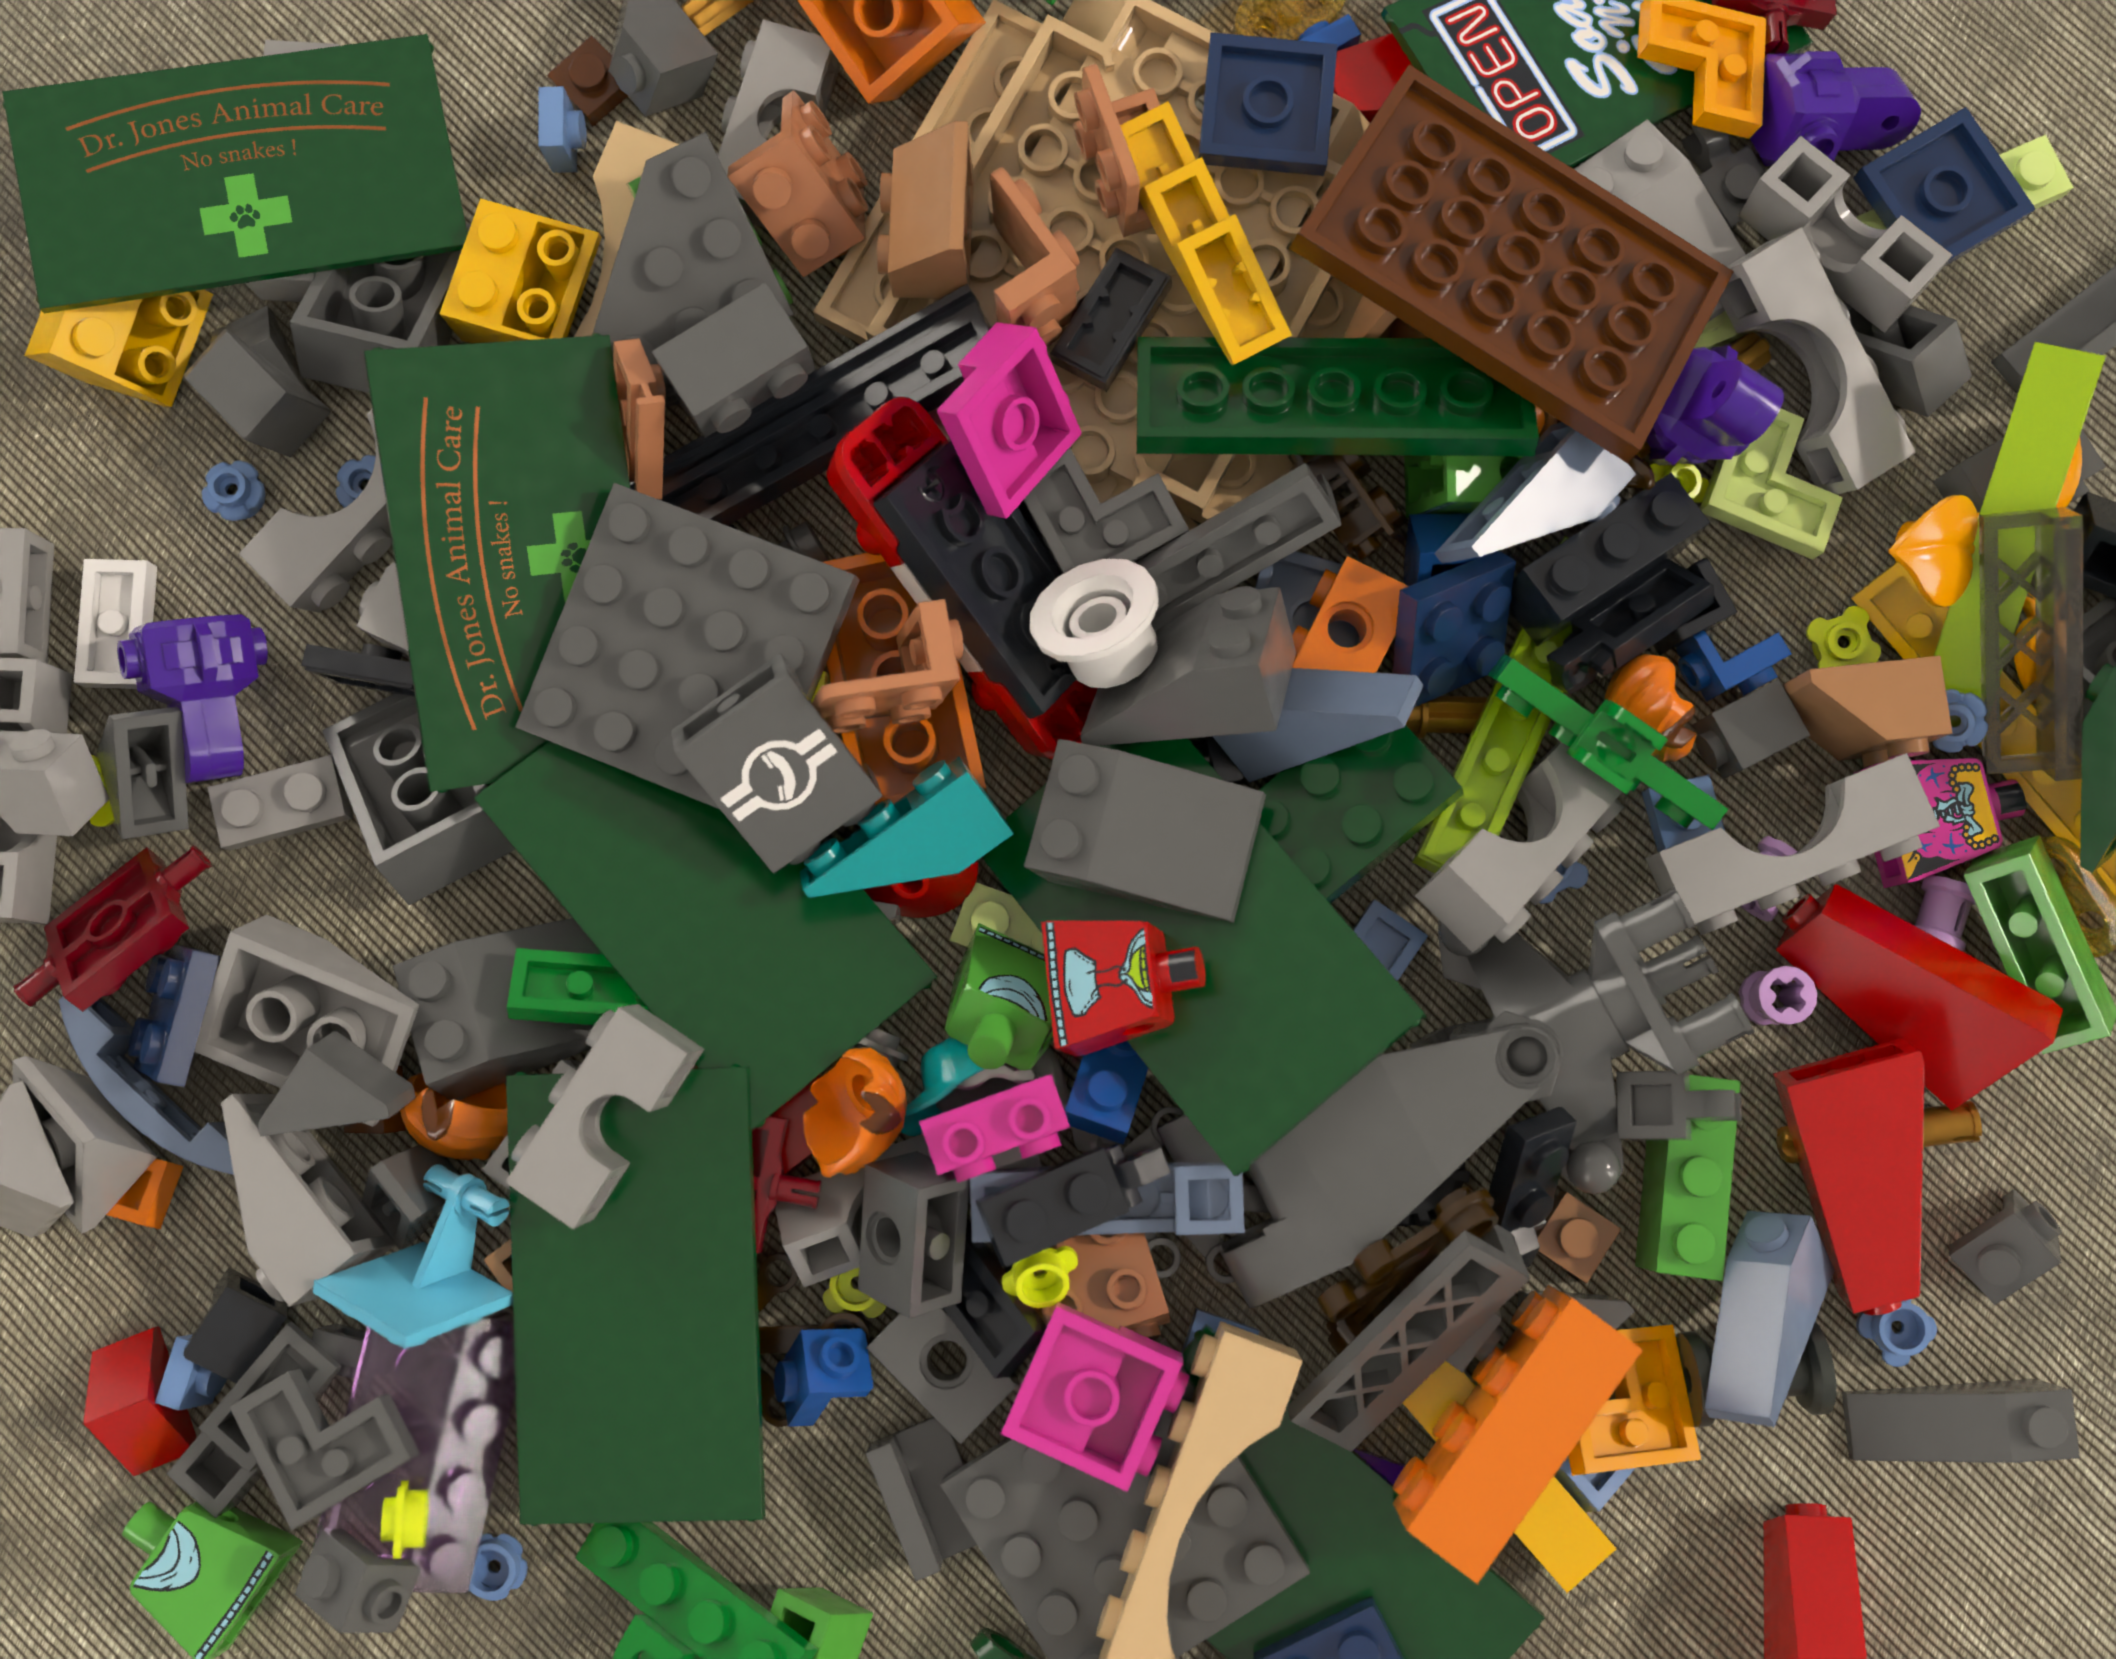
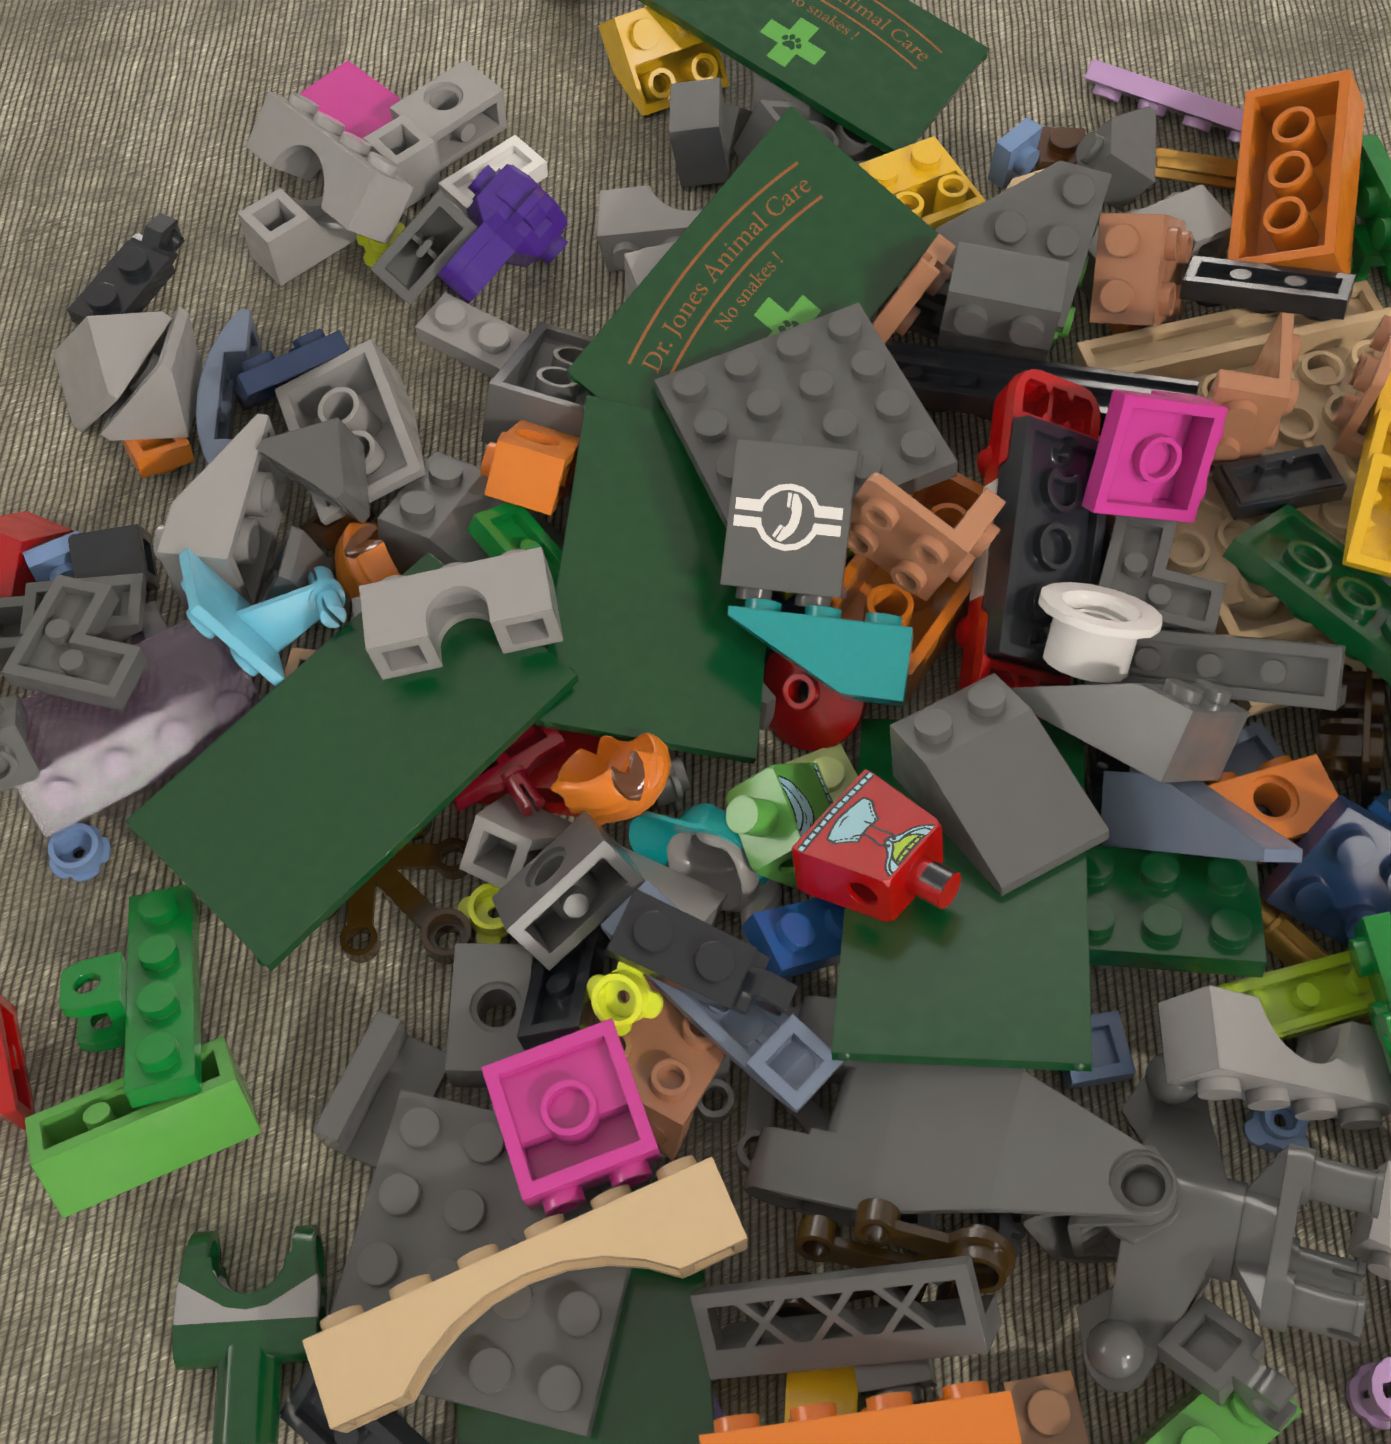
camera: 45 degrees right, 20 degrees down
(114, 929) = (327, 309): dark red plate -> none
(247, 499) = (631, 171): medium blue plate -> none
(372, 669) = (593, 296): black plate -> none
(405, 1519) = (68, 732): neon yellow plate -> none
(494, 905) = (531, 466): none -> orange brick
(819, 1368) = (418, 926): blue bracket -> none
(924, 100) = (1267, 288): none -> black plate
(929, 214) = (1215, 326): medium nougat slope -> none
(1010, 1119) = (700, 854): dark pink plate -> none
(1529, 1175) = (1051, 1308): black hinge -> none

